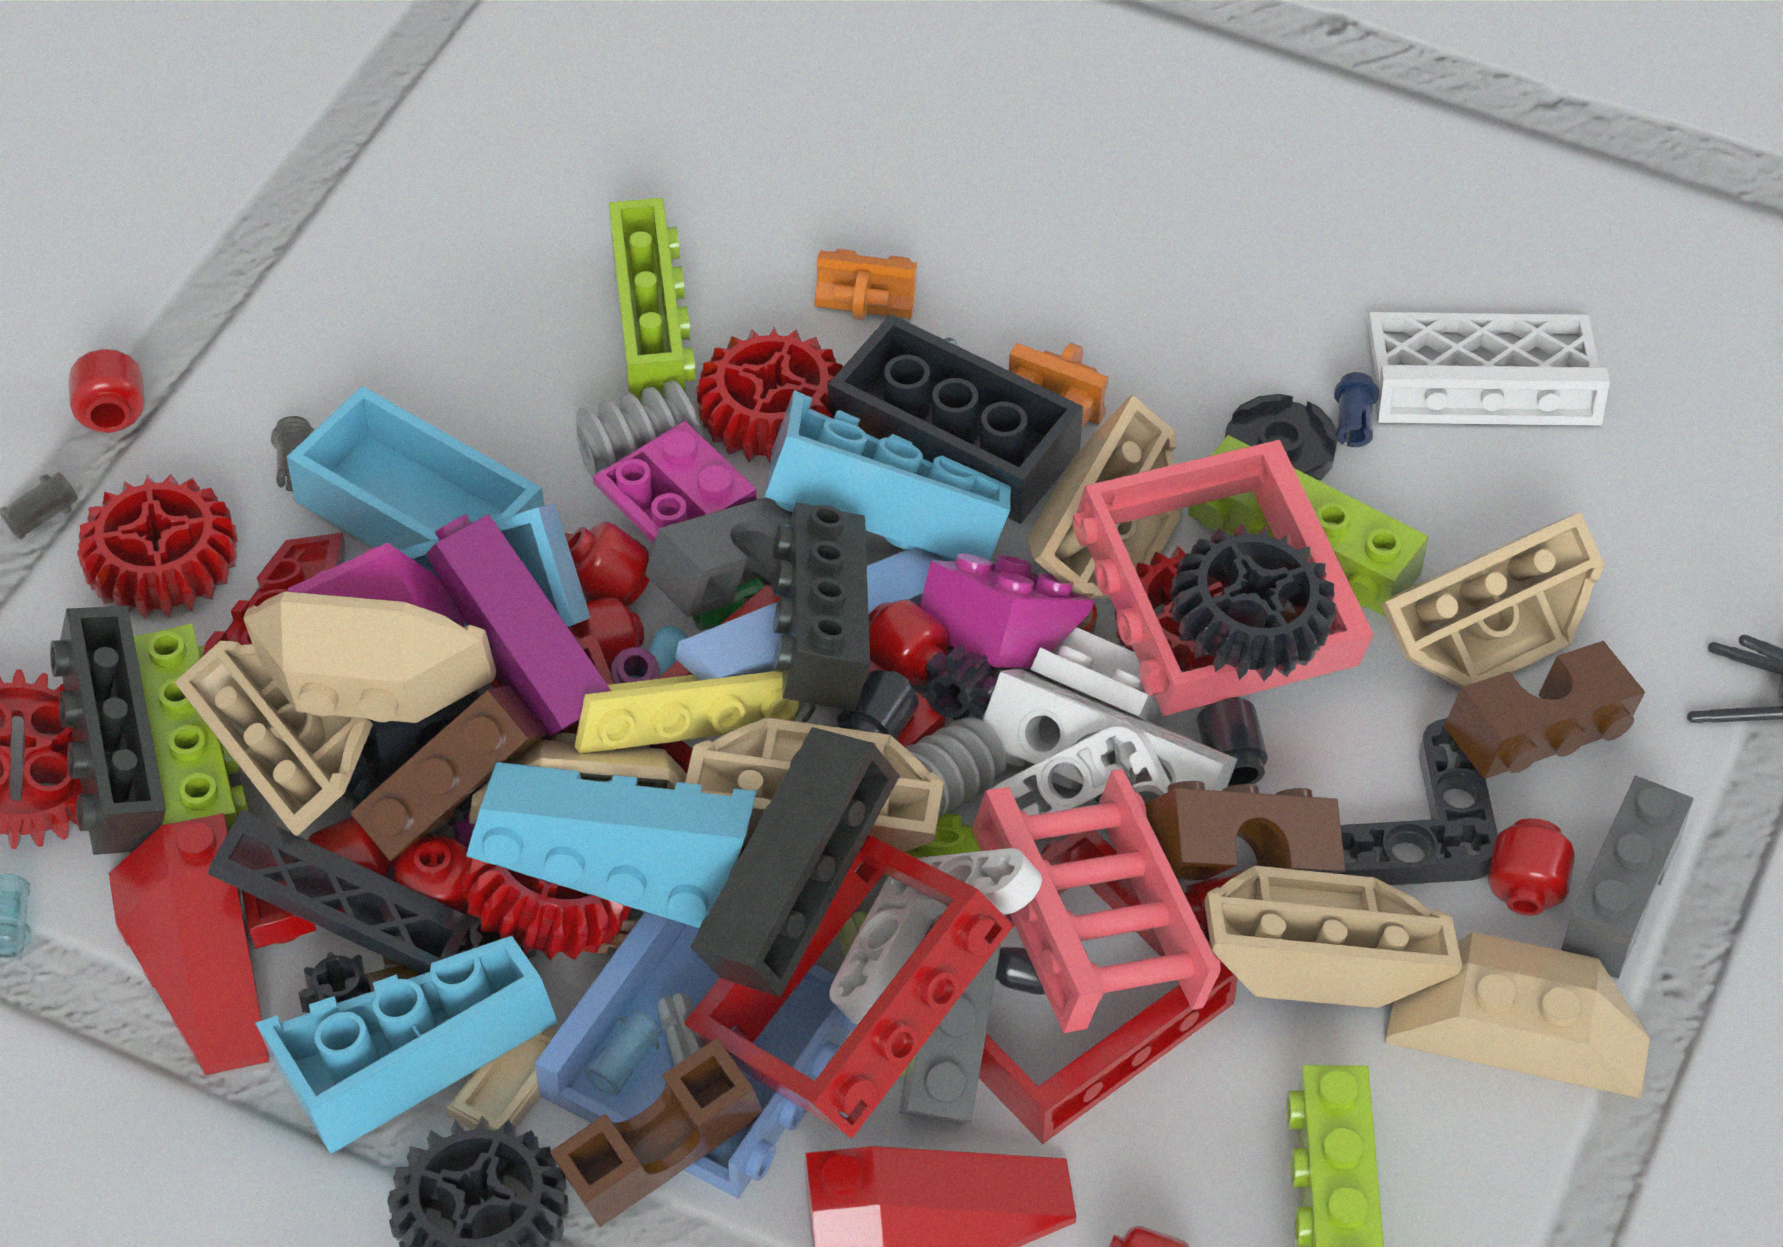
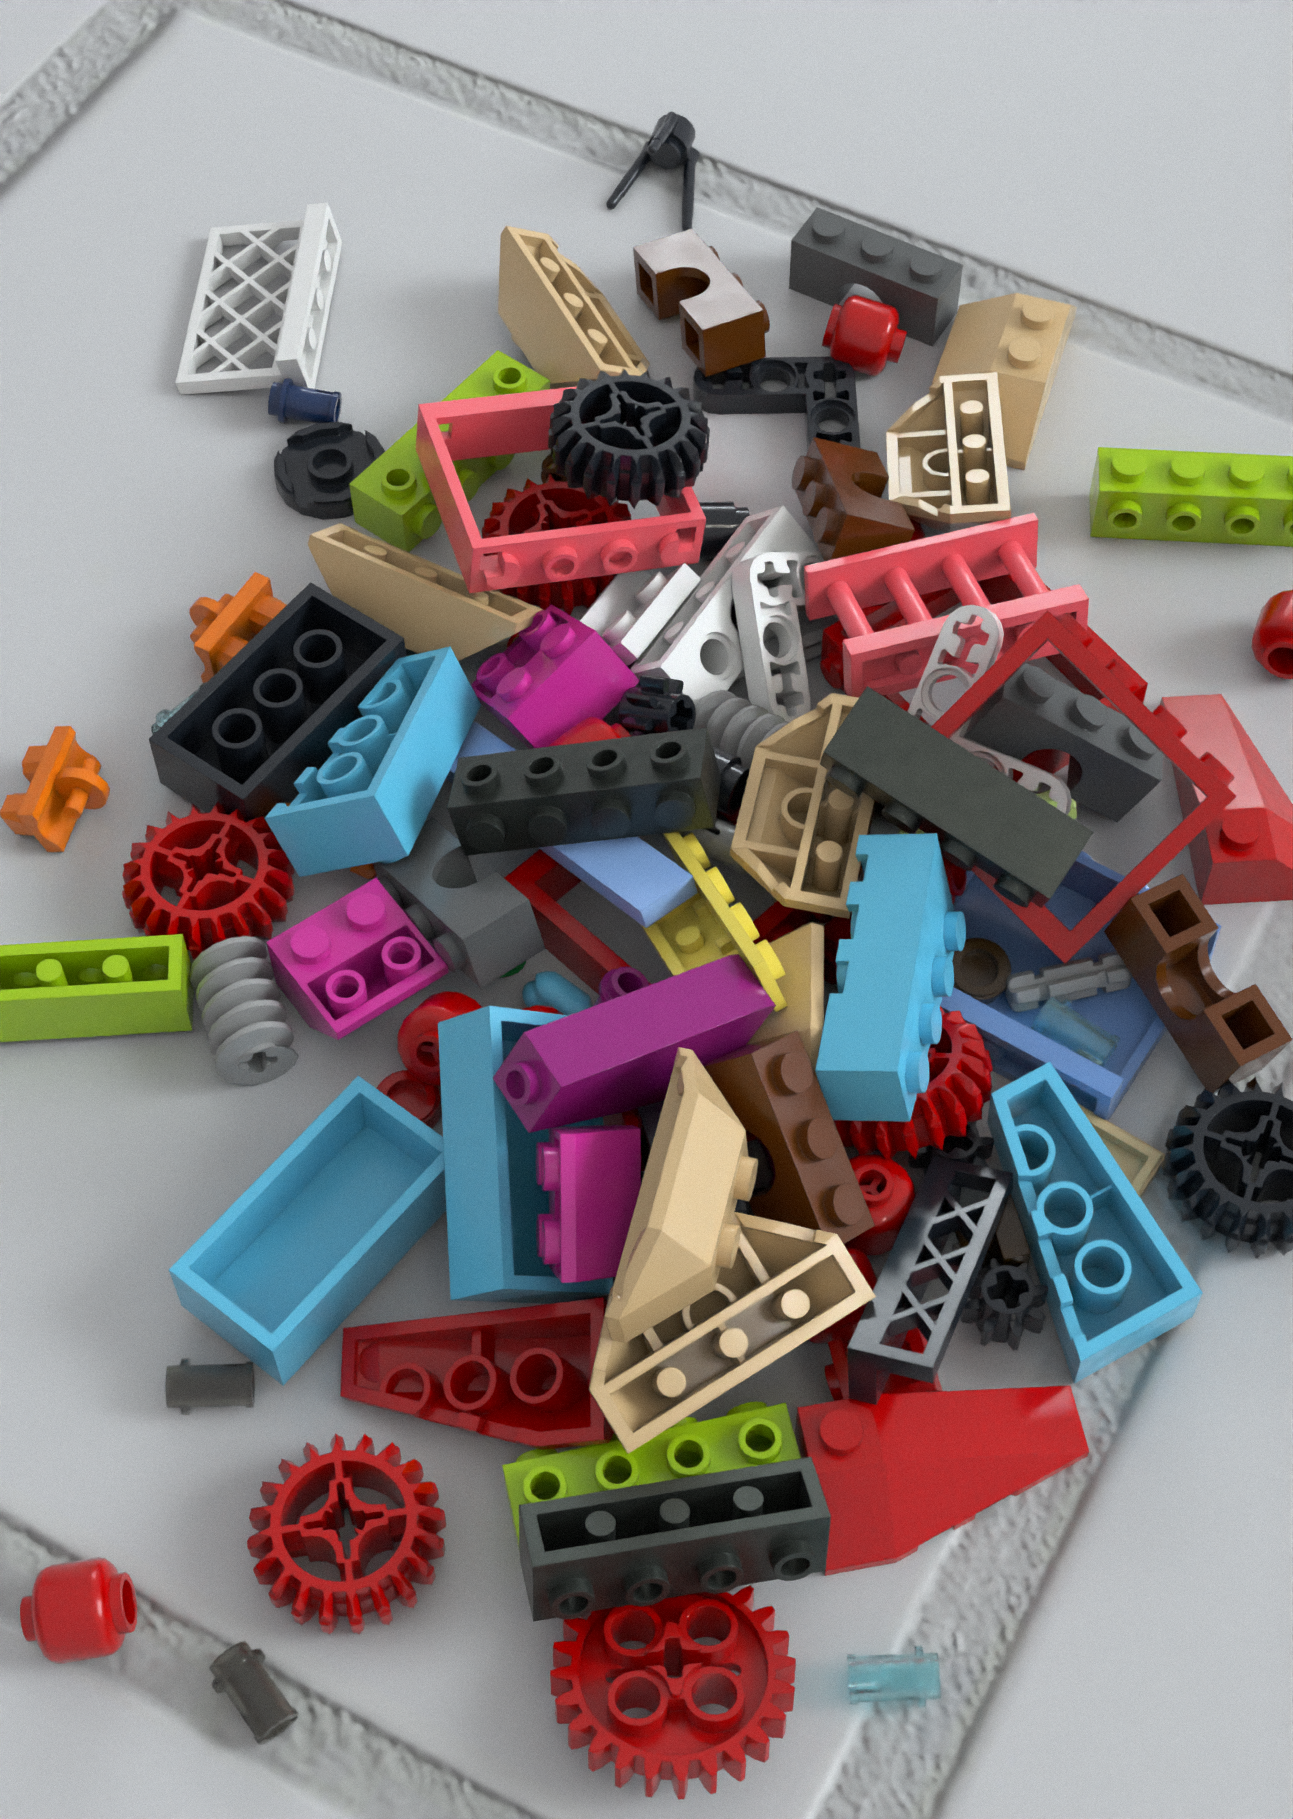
camera: 85 degrees left, 5 degrees up
(688, 974) = (981, 969): none -> dark brown tile

